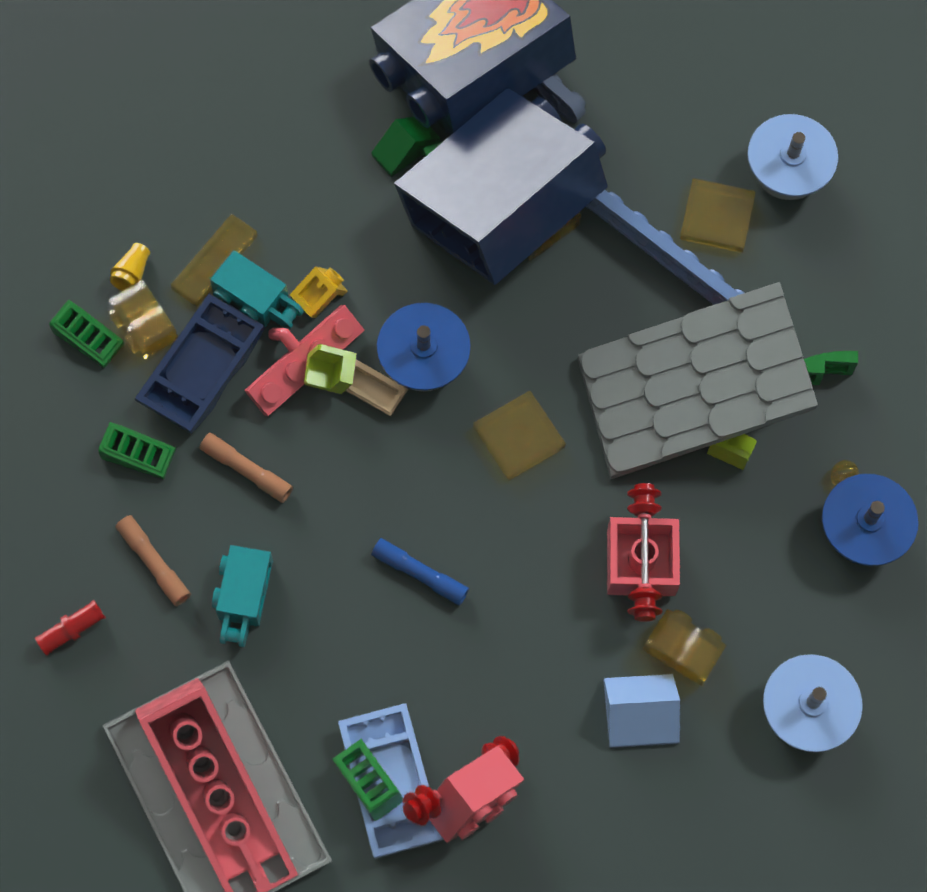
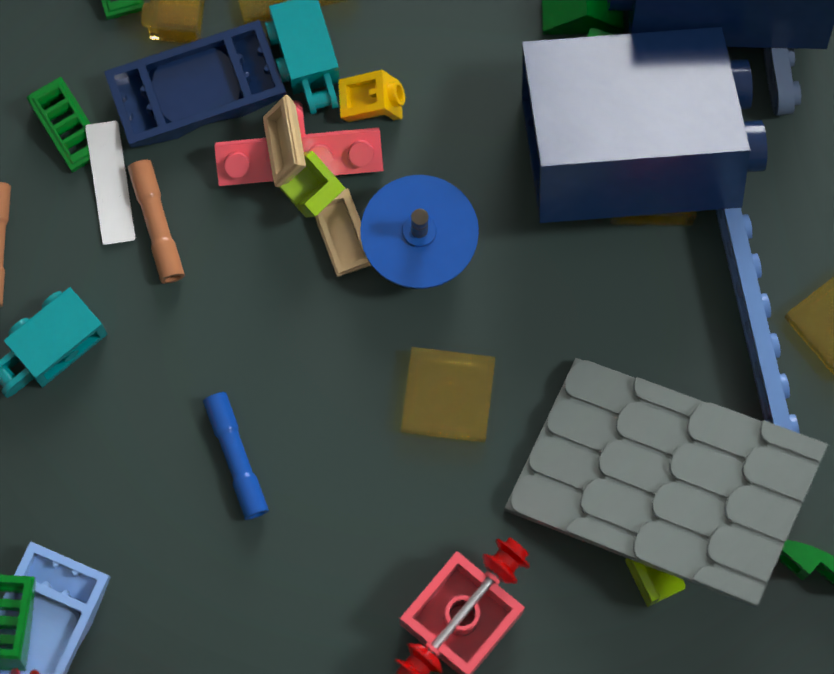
camera: 40 degrees right, 5 degrees up
(195, 466) = (110, 182): none -> white sticker
(293, 353) = (284, 141): none -> tan tile

